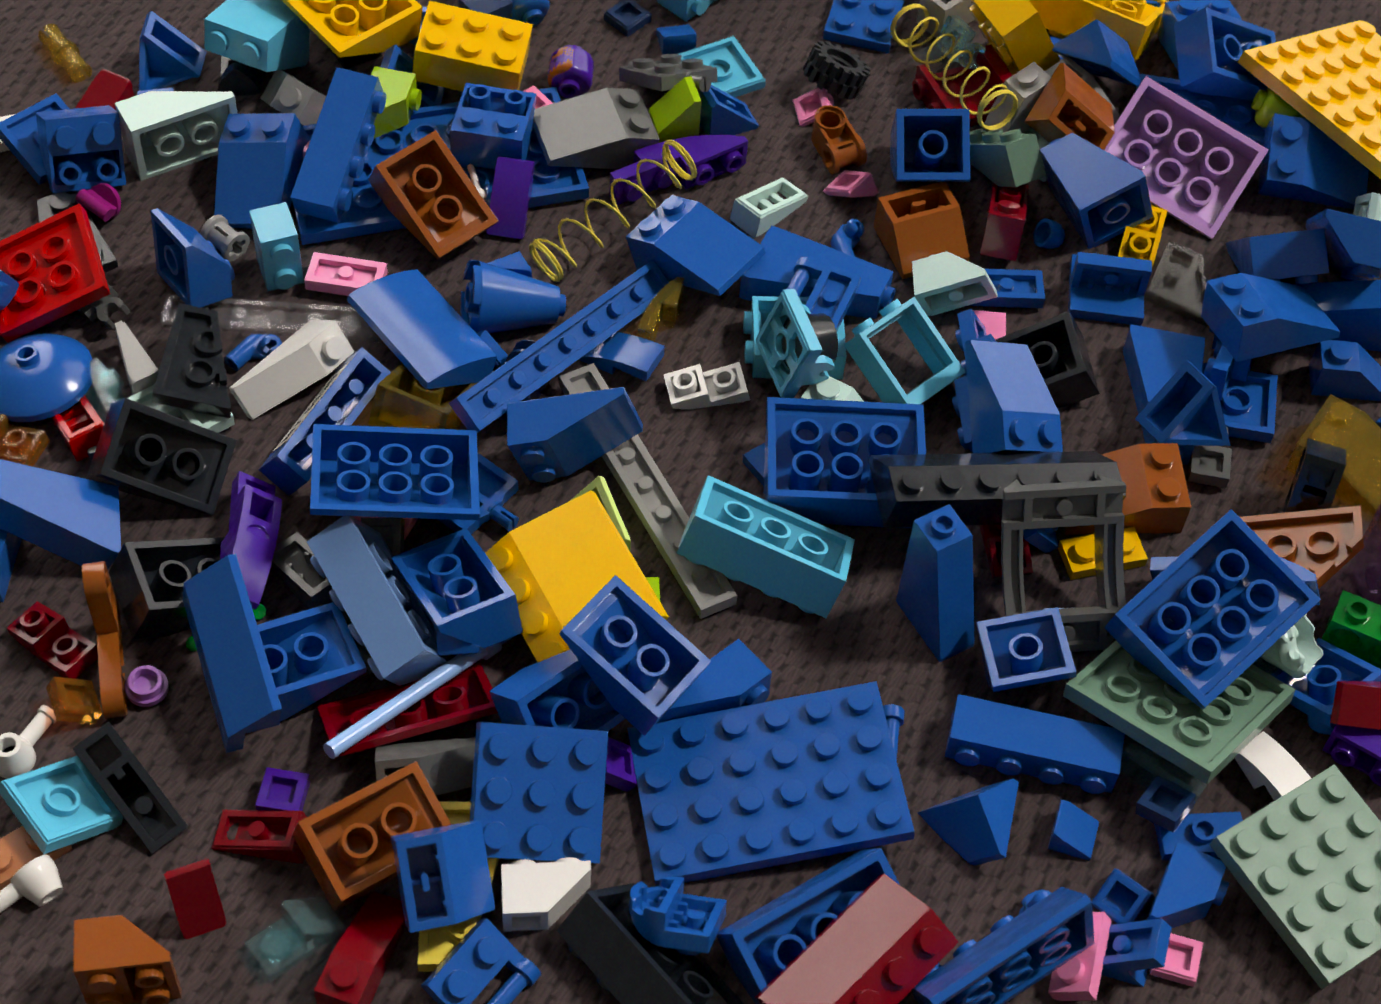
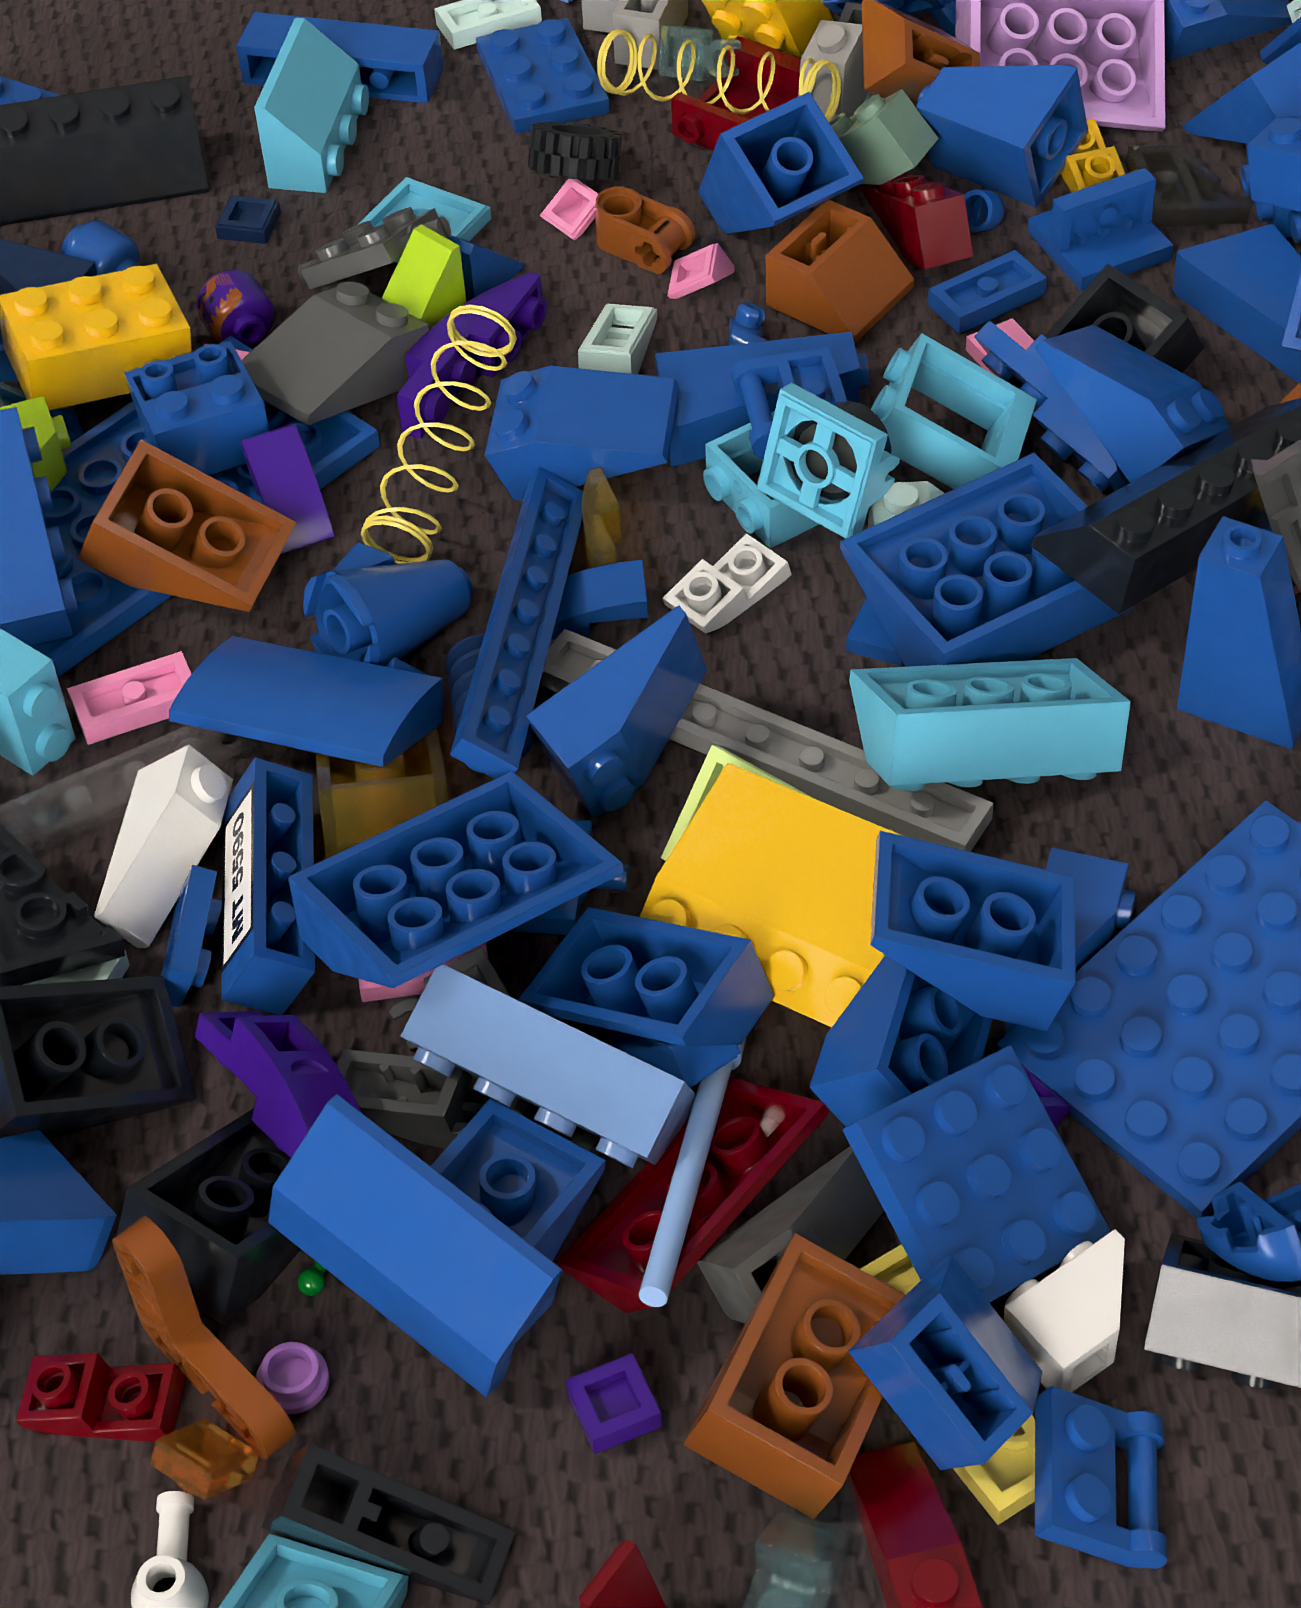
camera: 25 degrees left, 5 degrees down
(252, 348) = (81, 851): blue arm -> none
(259, 438) = (193, 917): none -> blue plate
(261, 834) = (627, 1476): dark red slope -> none
(676, 39) = (334, 214): blue slope -> none
(949, 283) = (929, 303): light aqua slope -> none

